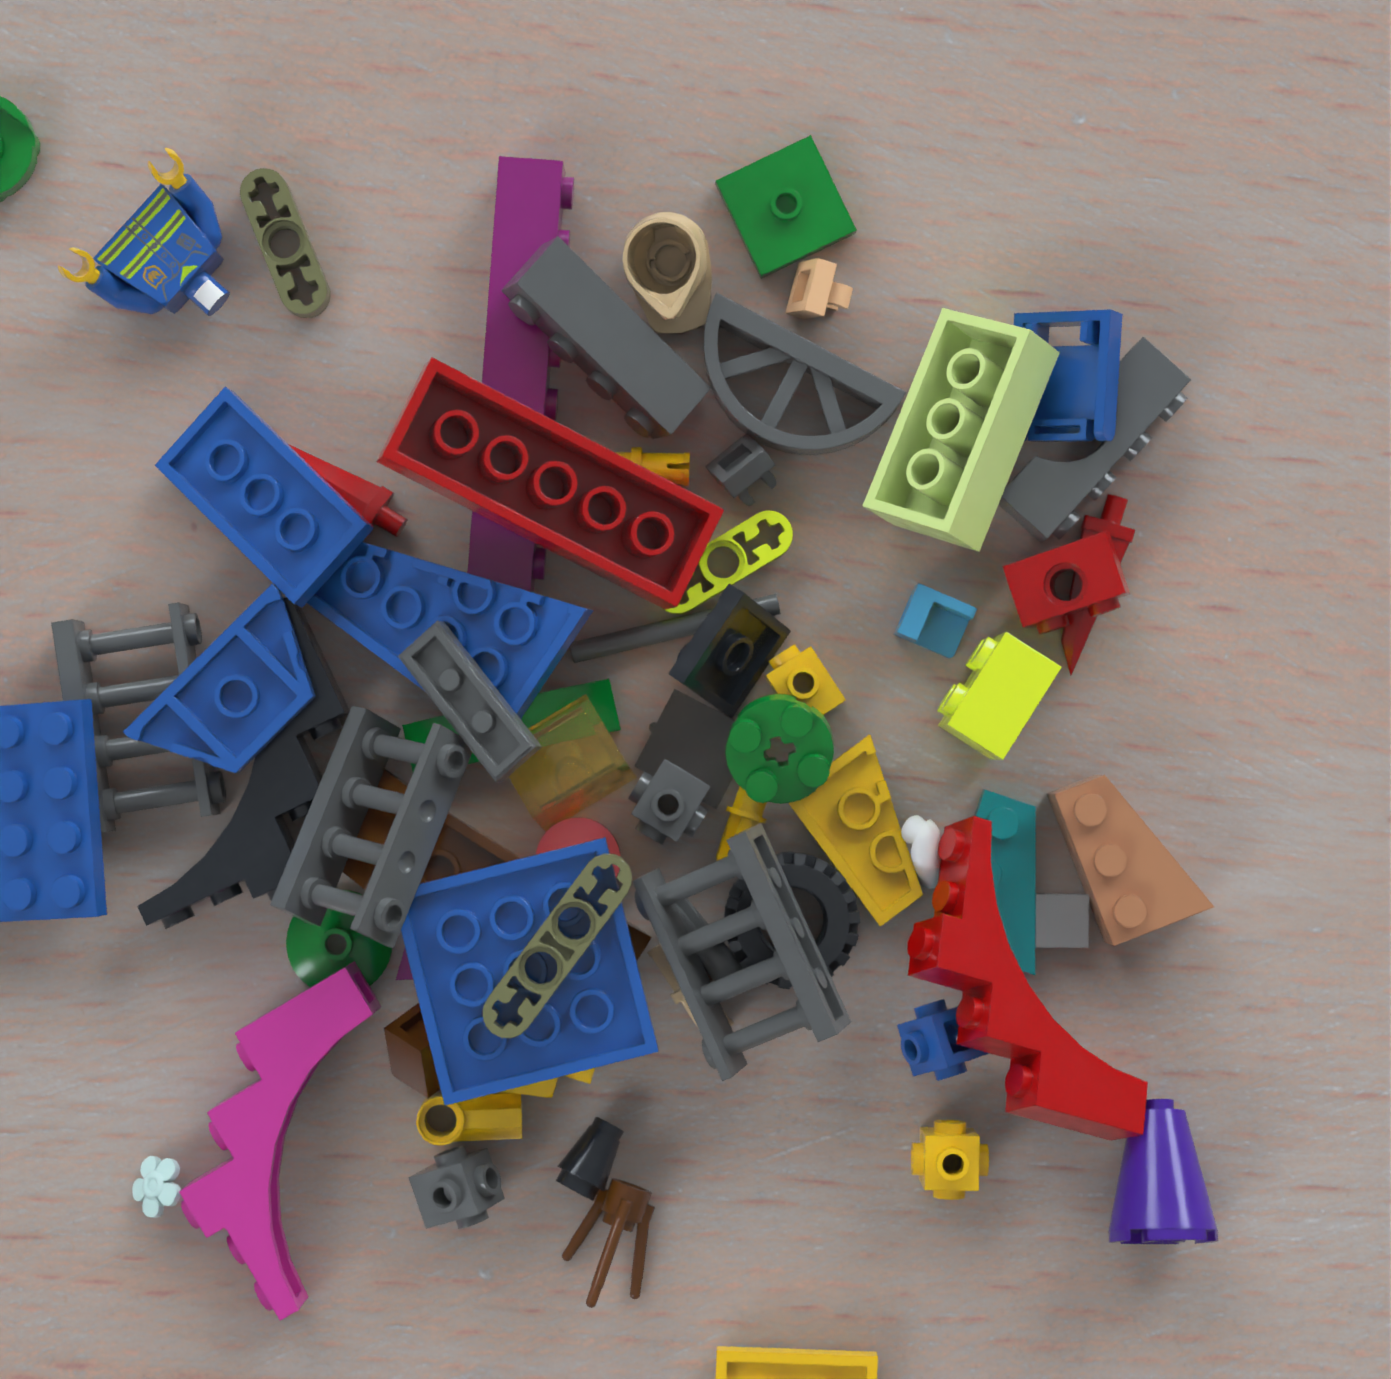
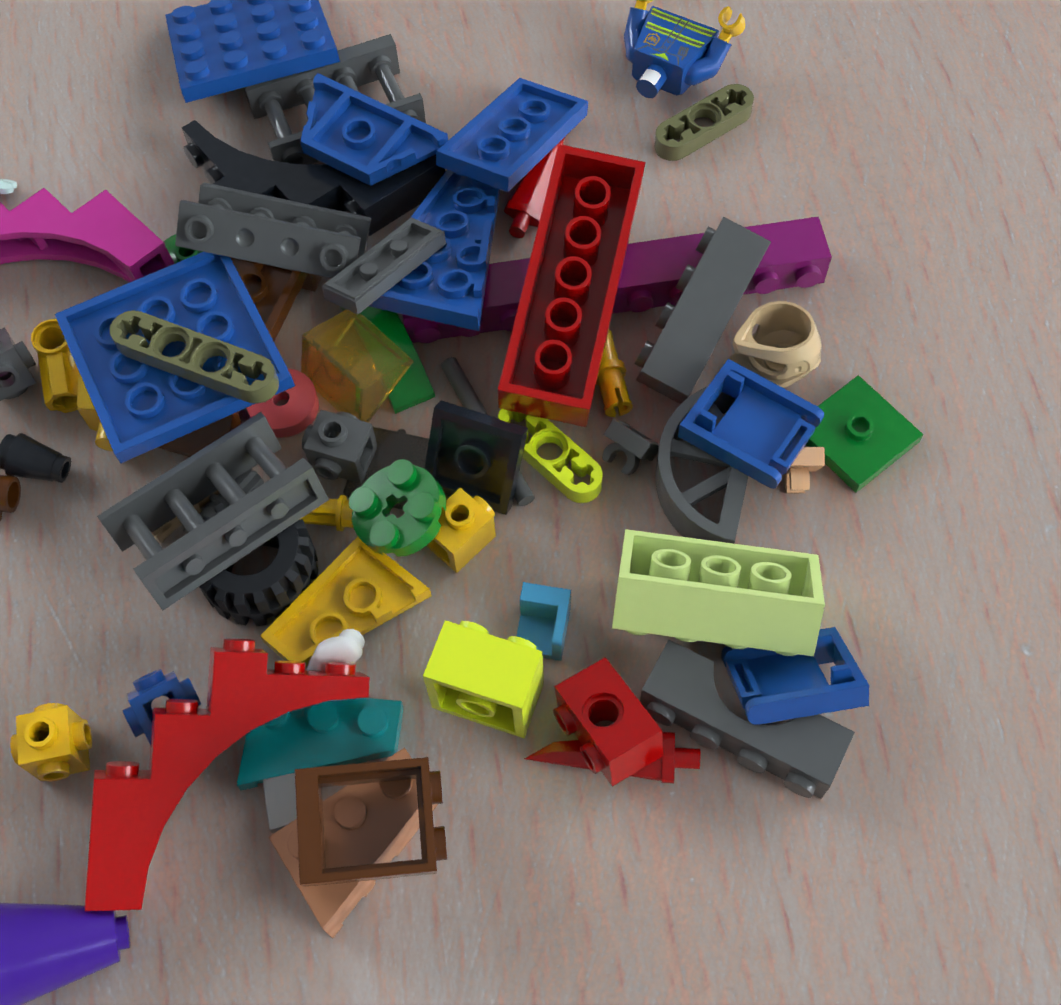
camera: 80 degrees right, 25 degrees down
(780, 325) = (760, 429): none -> blue container
(1183, 850) = (311, 821): none -> reddish brown window

